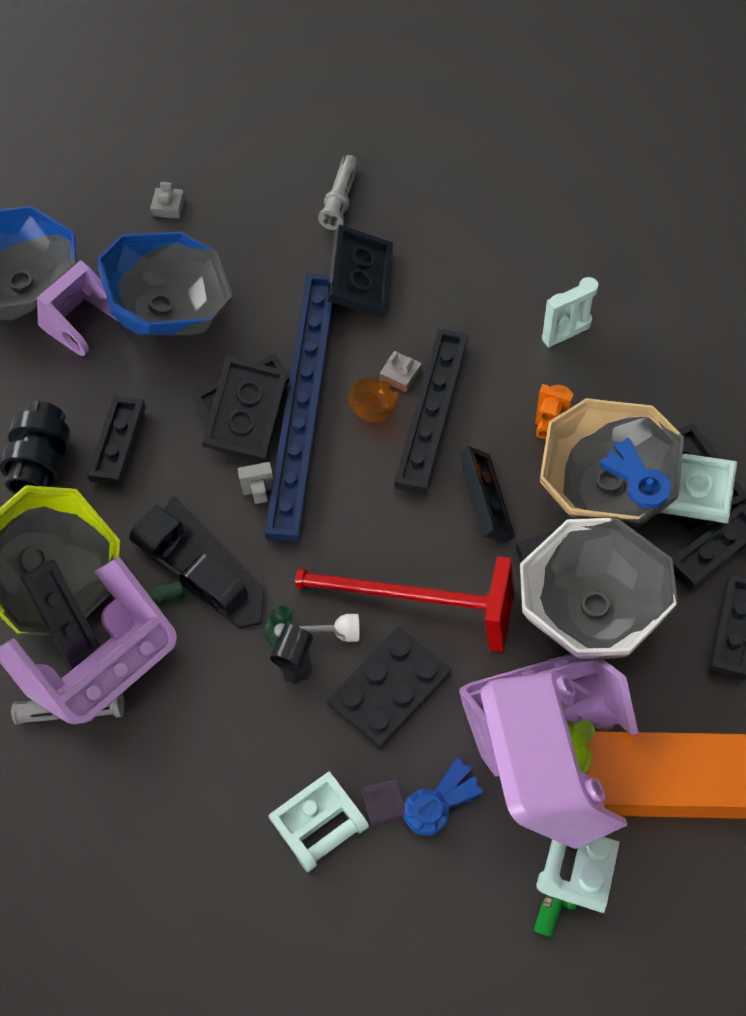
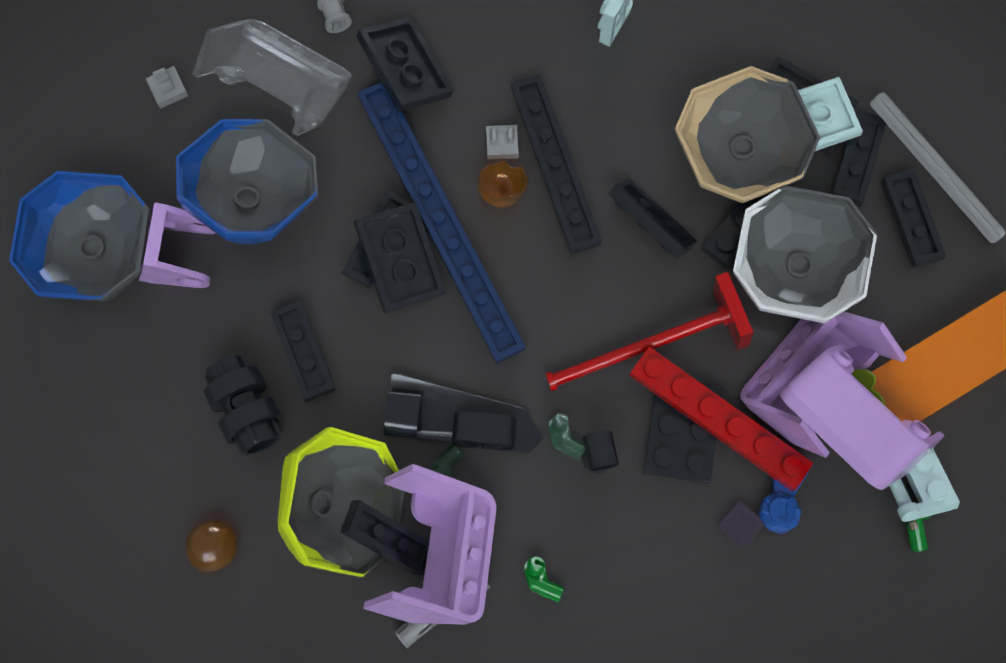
camera: 35 degrees left, 15 degrees up
(166, 738) = (538, 581): none -> green arm
(256, 480) = (455, 317): light grey tile -> none
(258, 220) = (276, 65): none -> clear windscreen
(312, 810) = (693, 568): light aqua plate -> none
(345, 628) = (618, 402): white hinge -> none
(427, 695) = (721, 419): none -> red plate
(551, 403) = (661, 109): orange hips -> none
(645, 486) = (795, 146): blue piece -> none

